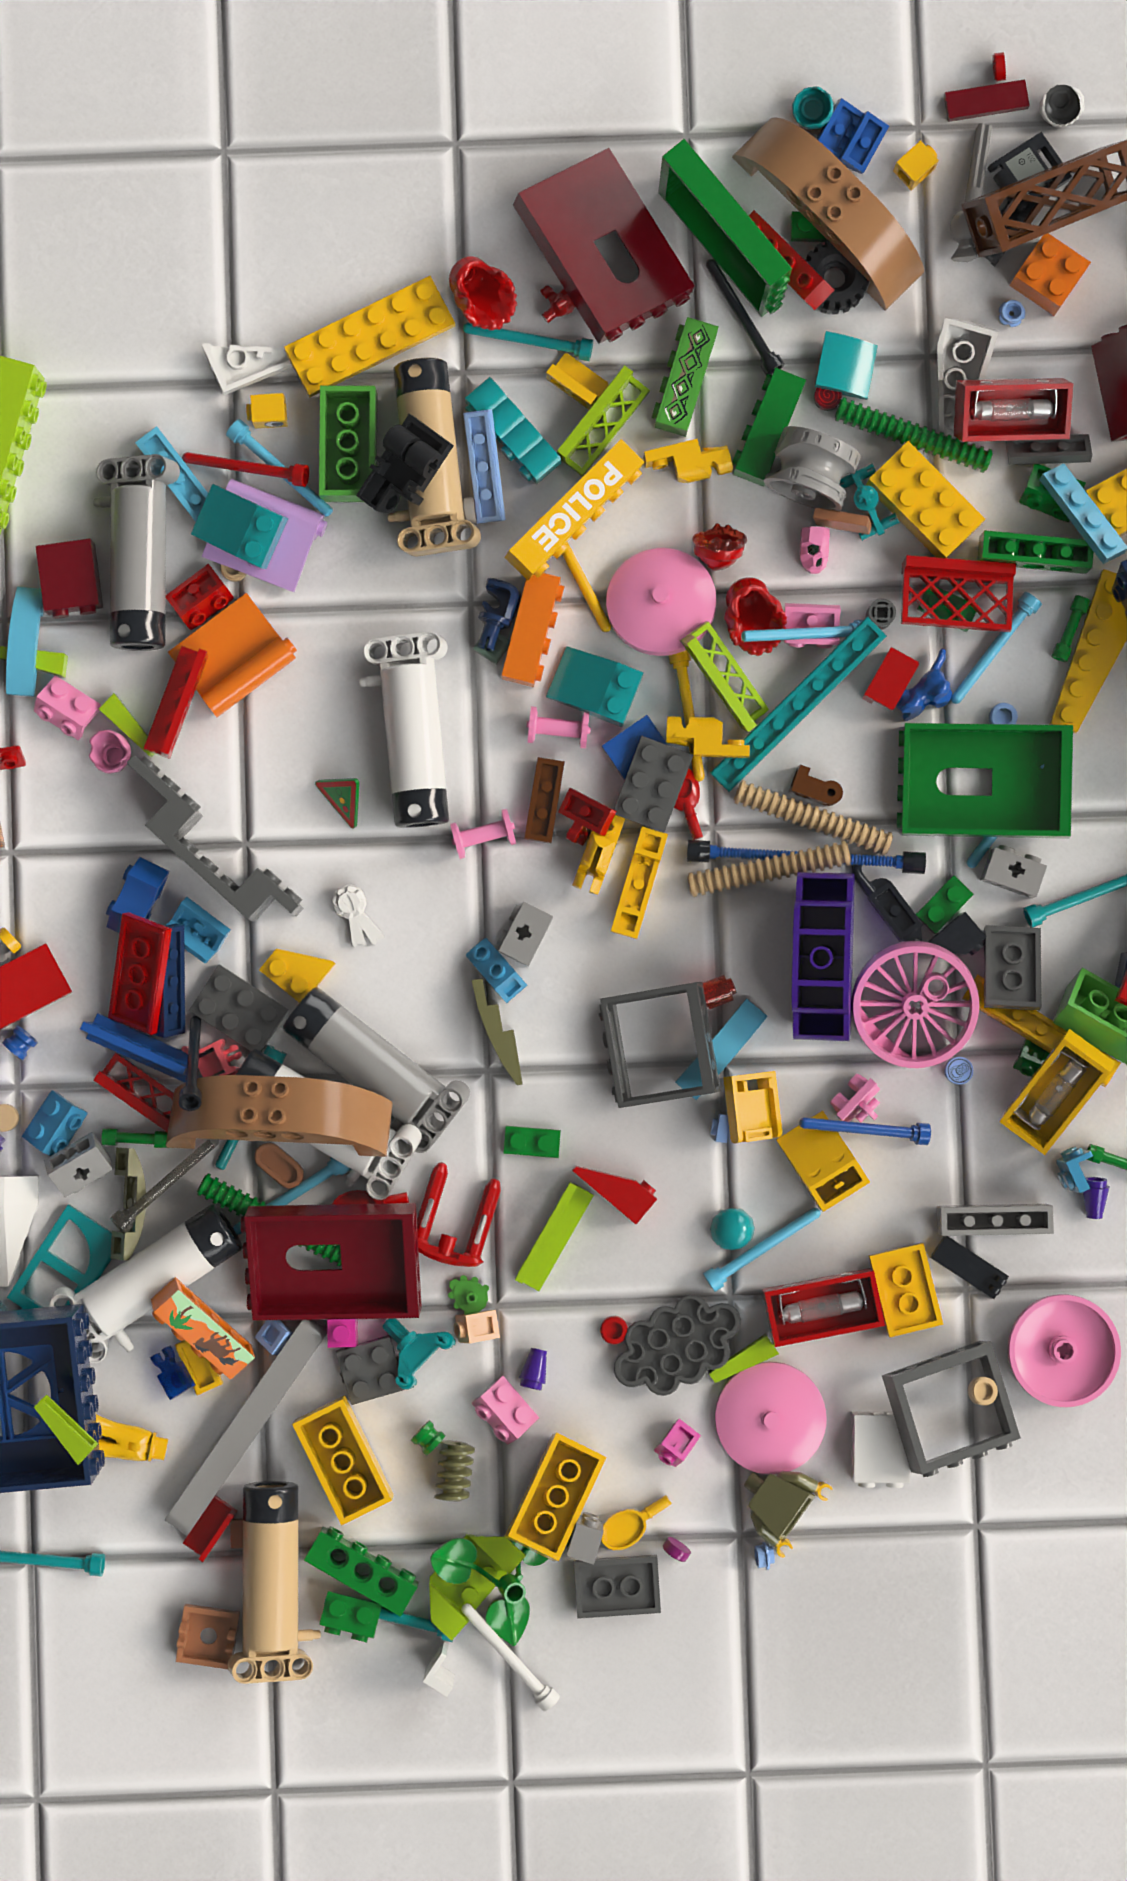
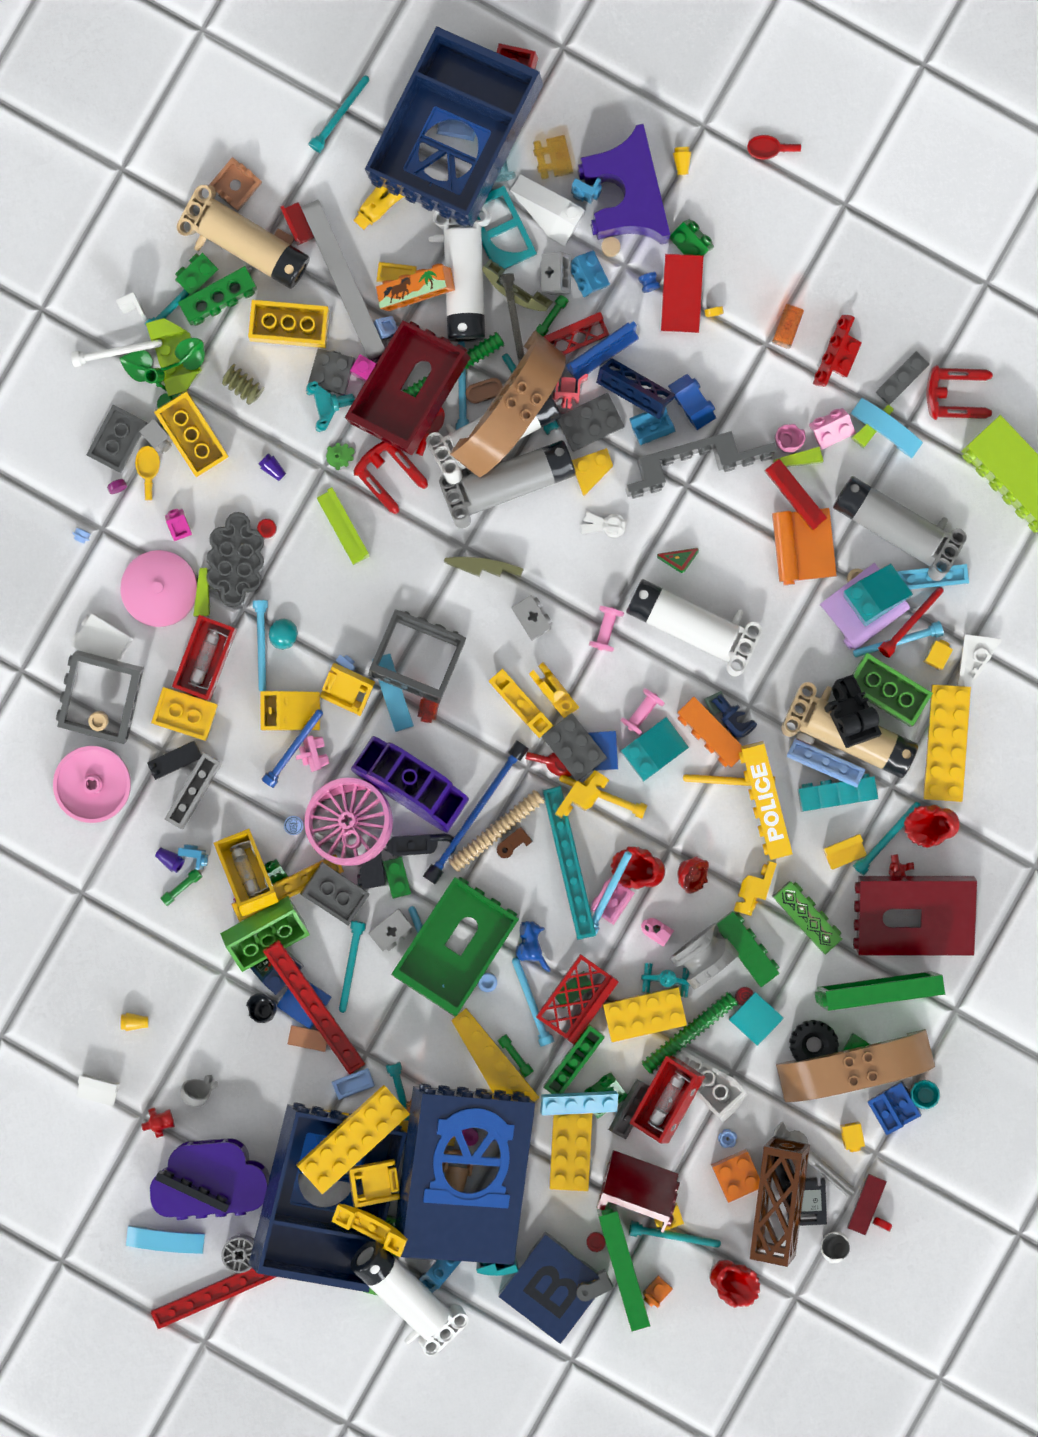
camera: 125 degrees right, 0 degrees up
(68, 1432) = (402, 174): lime piece -> none
(69, 578) = (908, 476): dark red brick -> none
(139, 973) = (646, 376): red tile -> none
(174, 1376) = (398, 255): clear blue plate -> none
(190, 1096) = (554, 360): black piece -> none
(199, 597) = (850, 546): red bracket -> none
(428, 1437) = (271, 381): green wheel -> none
(476, 1327) = (318, 448): light nougat bracket -> none
(496, 970) = (520, 587): dark azure bracket -> none
(505, 1411) = (259, 435): bright pink bracket -> none
(532, 1141) = (406, 547): green plate -> none
(544, 800) = (604, 677): reddish brown plate -> none
(586, 815) = (580, 696): red plate -> none
(594, 415) = (817, 848): lime fence -> none
(622, 1192) = (344, 581): red slope -> none
(660, 600) = (680, 819): bright pink dish -> none
(720, 683) = (612, 822): lime fence -> none
(768, 359) = (787, 974): black piece -> none
(769, 868) = (482, 783): tan piece -> none
(780, 1504) = (106, 563): olive torso -> none
(803, 277) = (828, 1021): red brick -> none
(842, 521) = (661, 959): nougat tile -> none
(884, 617) = (593, 943): dark grey wheel -> none
(891, 679) = (550, 927): red panel -> none

